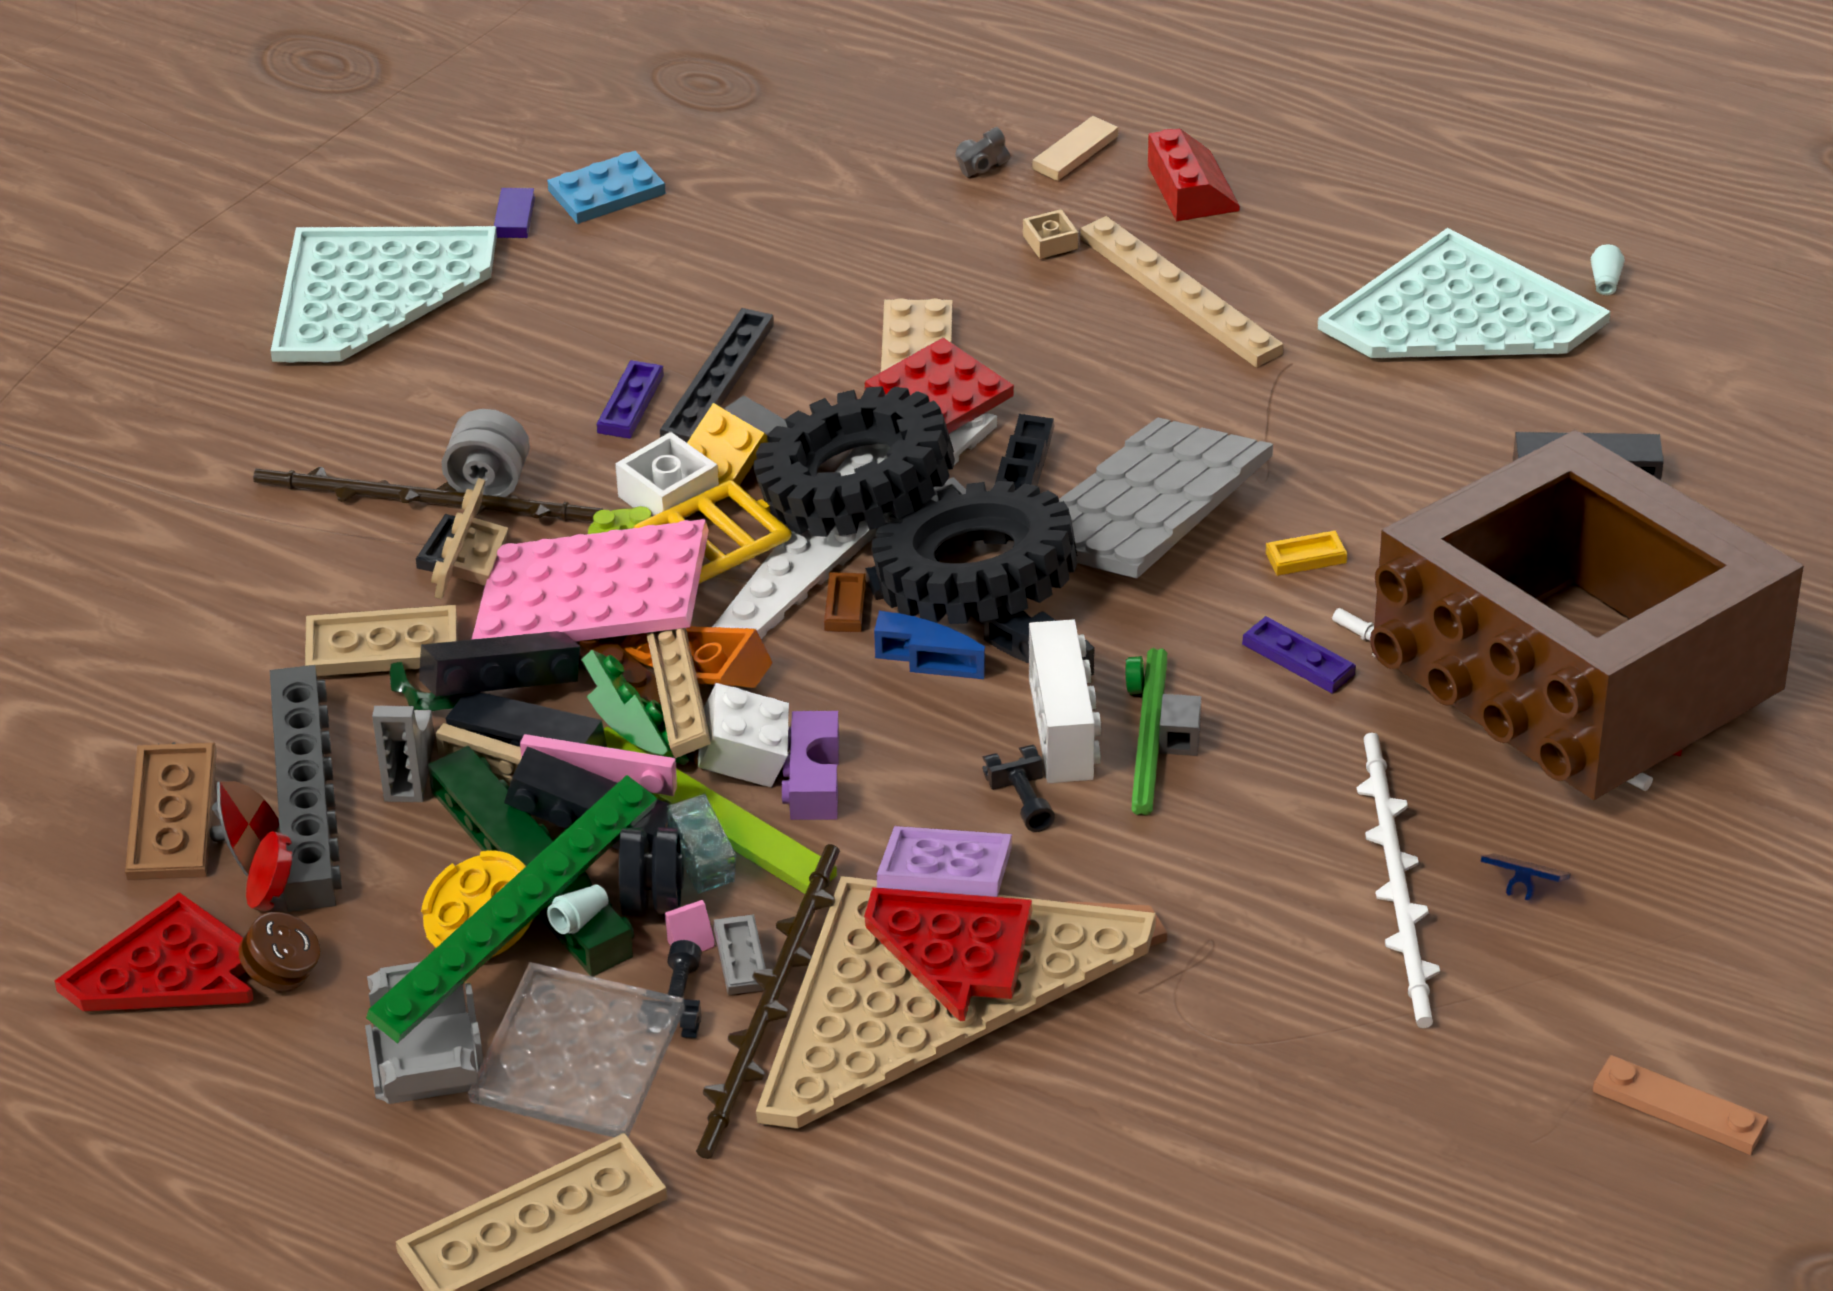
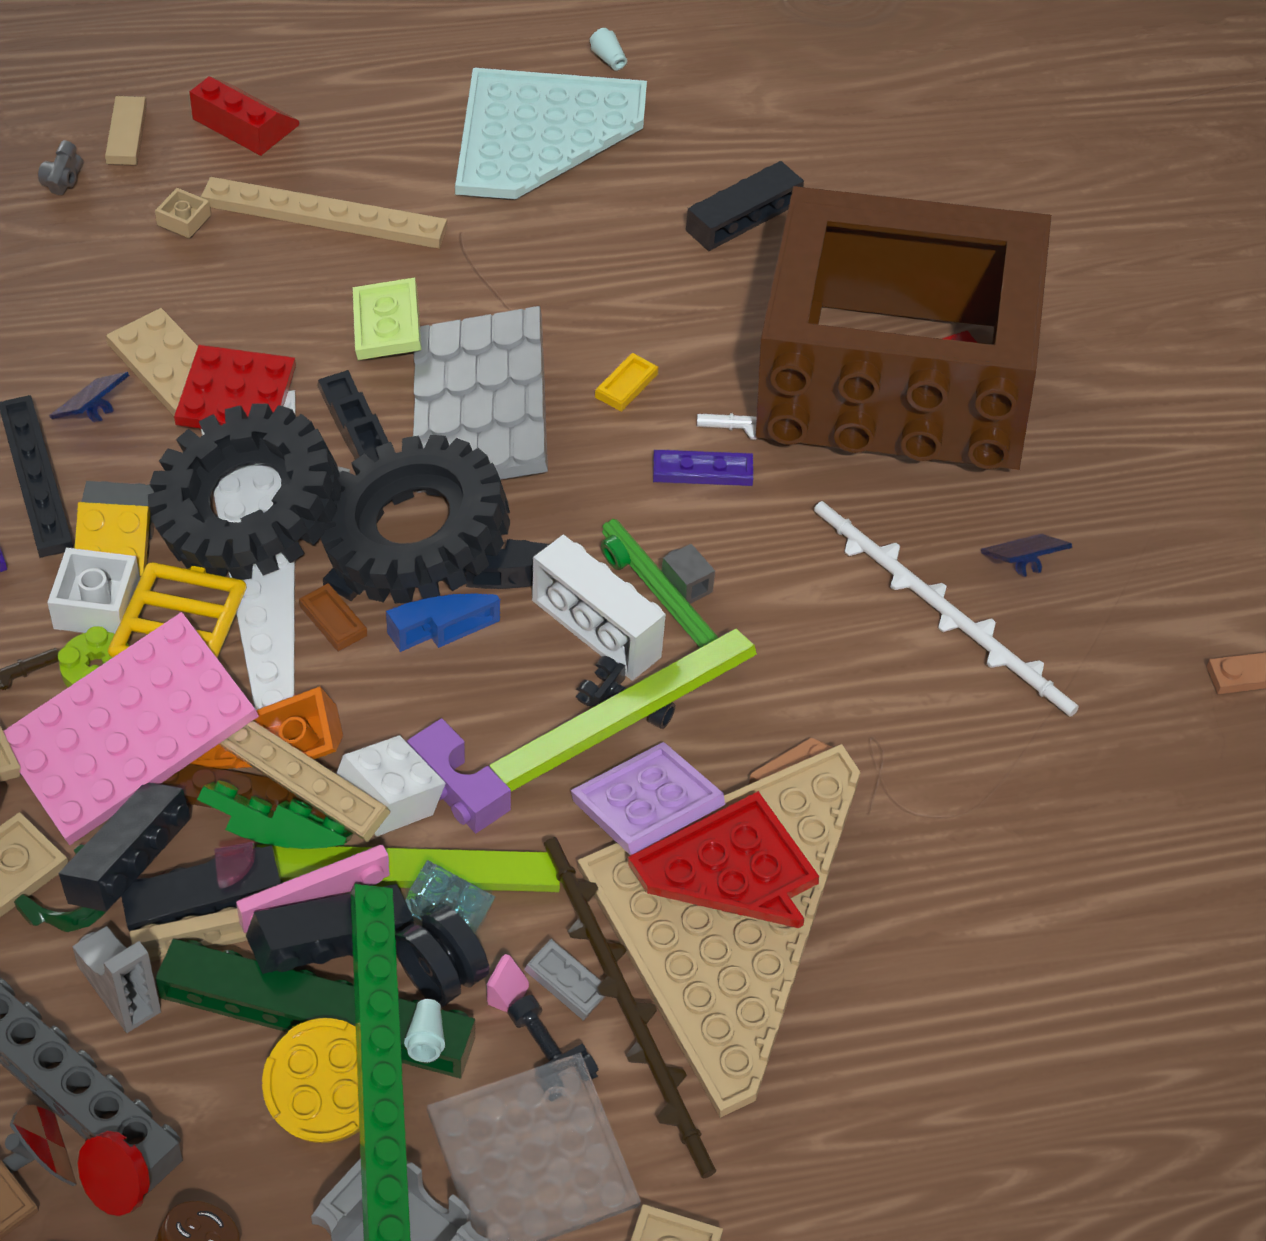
camera: 45 degrees left, 10 degrees up
(559, 715) = (233, 863): none -> clear pink tile
(818, 341) = (91, 398): none -> clear blue piece
(1000, 788) = (623, 709): none -> lime tile
(1134, 396) = (386, 318): none -> yellowish green plate

